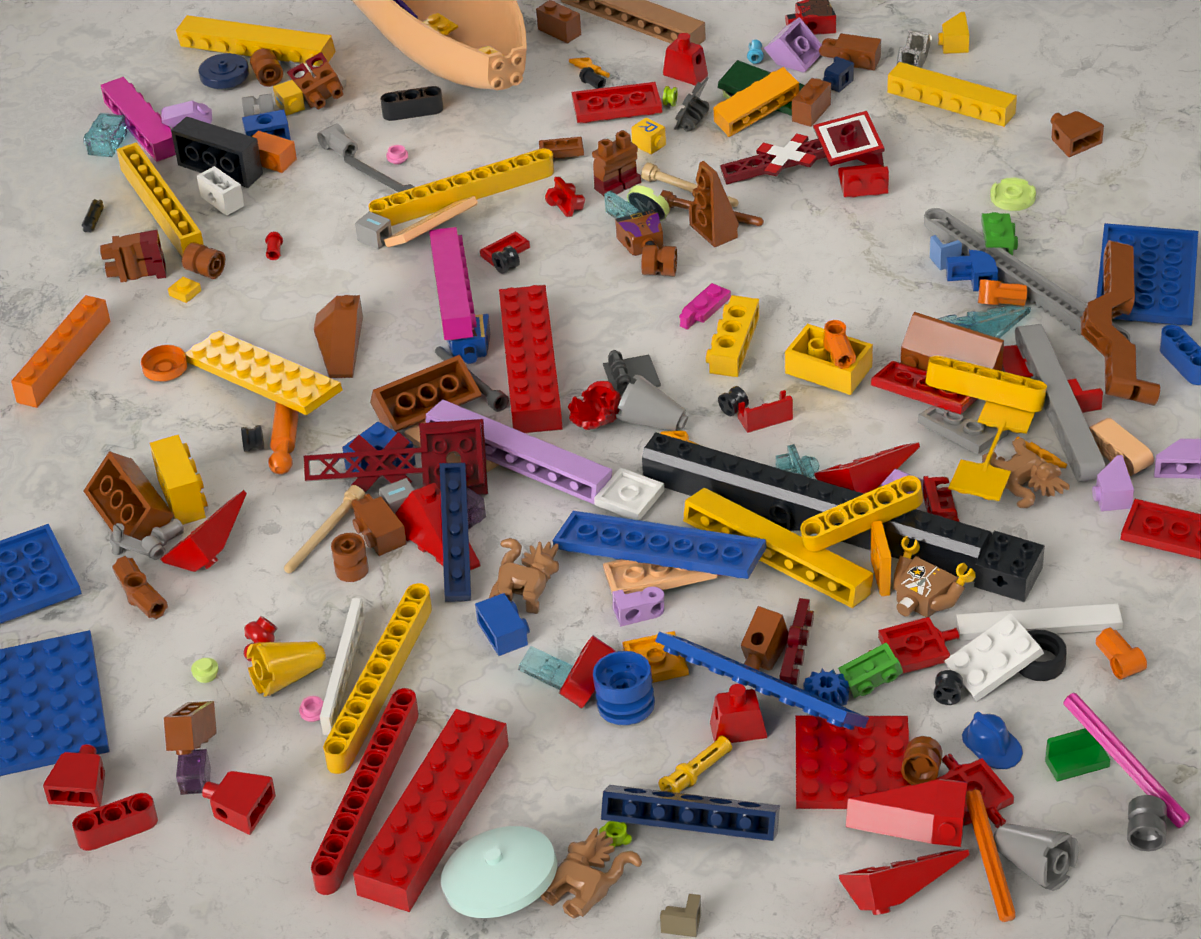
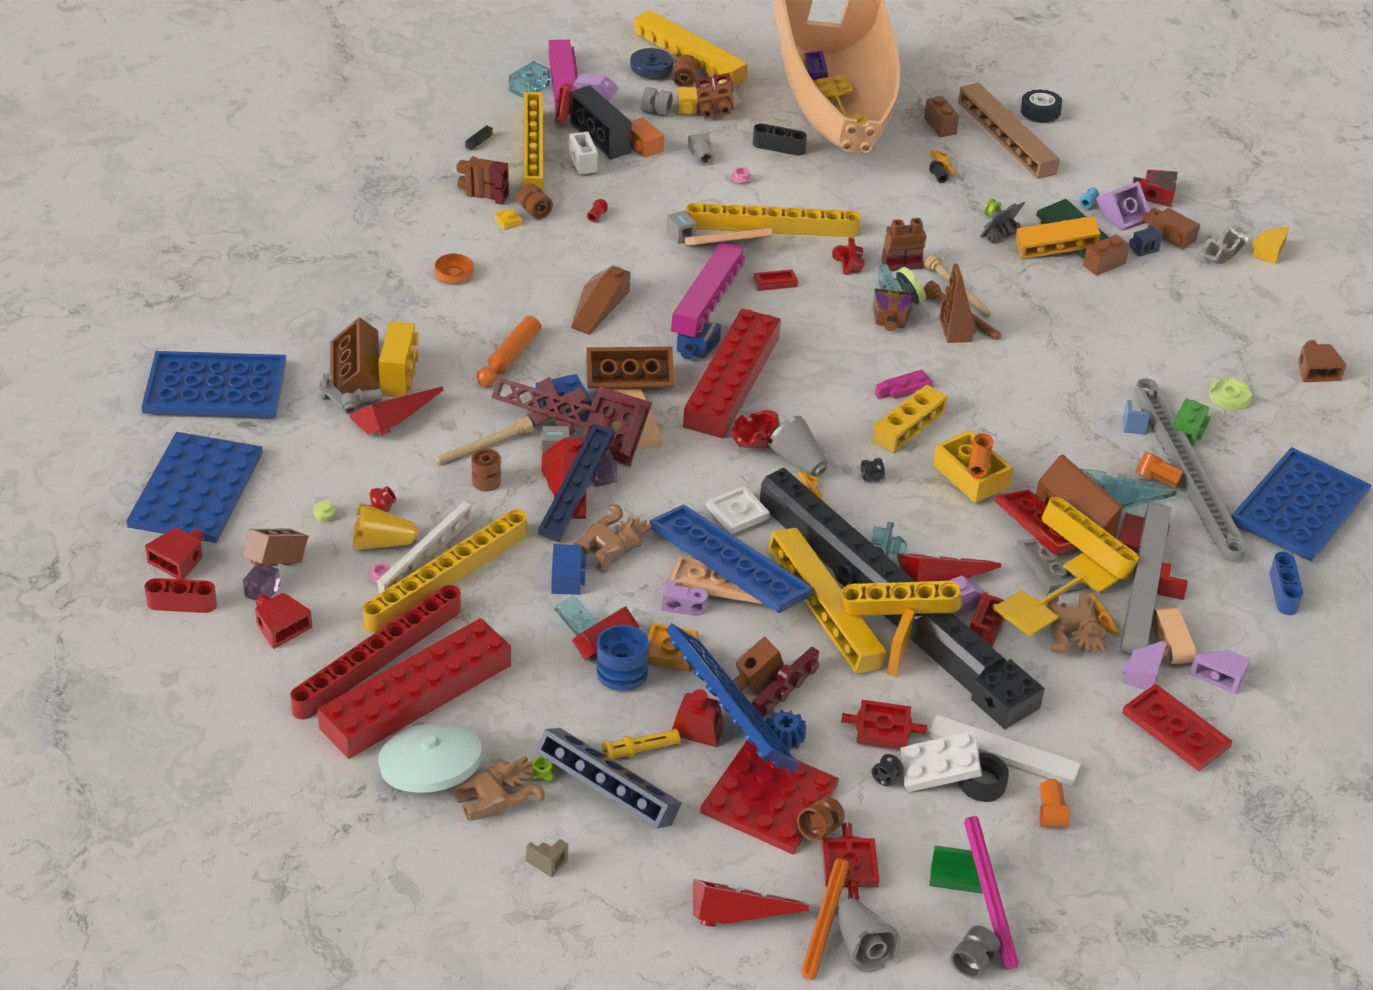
camera: 20 degrees right, 0 degrees up
(60, 351) = (383, 230): orange brick -> none
(137, 589) = (316, 429): dark orange piece -> none
(165, 146) = (563, 103): none -> red tile
(252, 438) = (478, 350): black wheel -> none
(263, 372) = (518, 303): yellow plate -> none
(270, 122) = (659, 116): blue brick -> none
(376, 174) = (714, 185): dark grey piece -> none
(378, 524) = (526, 454): dark orange brick -> none
(495, 398) = (684, 391): dark grey piece -> none
(505, 259) = (768, 288): black wheel -> none
(531, 455) = (677, 445): lavender brick -> none
(564, 147) = (875, 217): dark orange plate -> none
(616, 102) = (945, 197): red plate -> none
(621, 371) = (814, 414): dark grey hinge -> none
(648, 135) = (951, 233): yellow brick -> none
(659, 260) = (891, 335): dark orange wheel -> none
(685, 61) = (1022, 183): red torso -> none
(766, 414) = (893, 491): red hinge -> none
(840, 140) = (1104, 295): piece -> none
(864, 180) = (1106, 334): red bracket -> none
(871, 670) = (832, 729): bright green bracket -> none
(918, 812) = (789, 858): red wedge -> none
(924, 586) = (925, 680): medium nougat torso -> none
(952, 94) = (1233, 292): yellow brick -> none
(972, 267) = (1153, 440): blue brick -> none
(992, 741) = (896, 830): blue piece -> none
(1099, 331) = (1220, 541): dark orange beam -> none

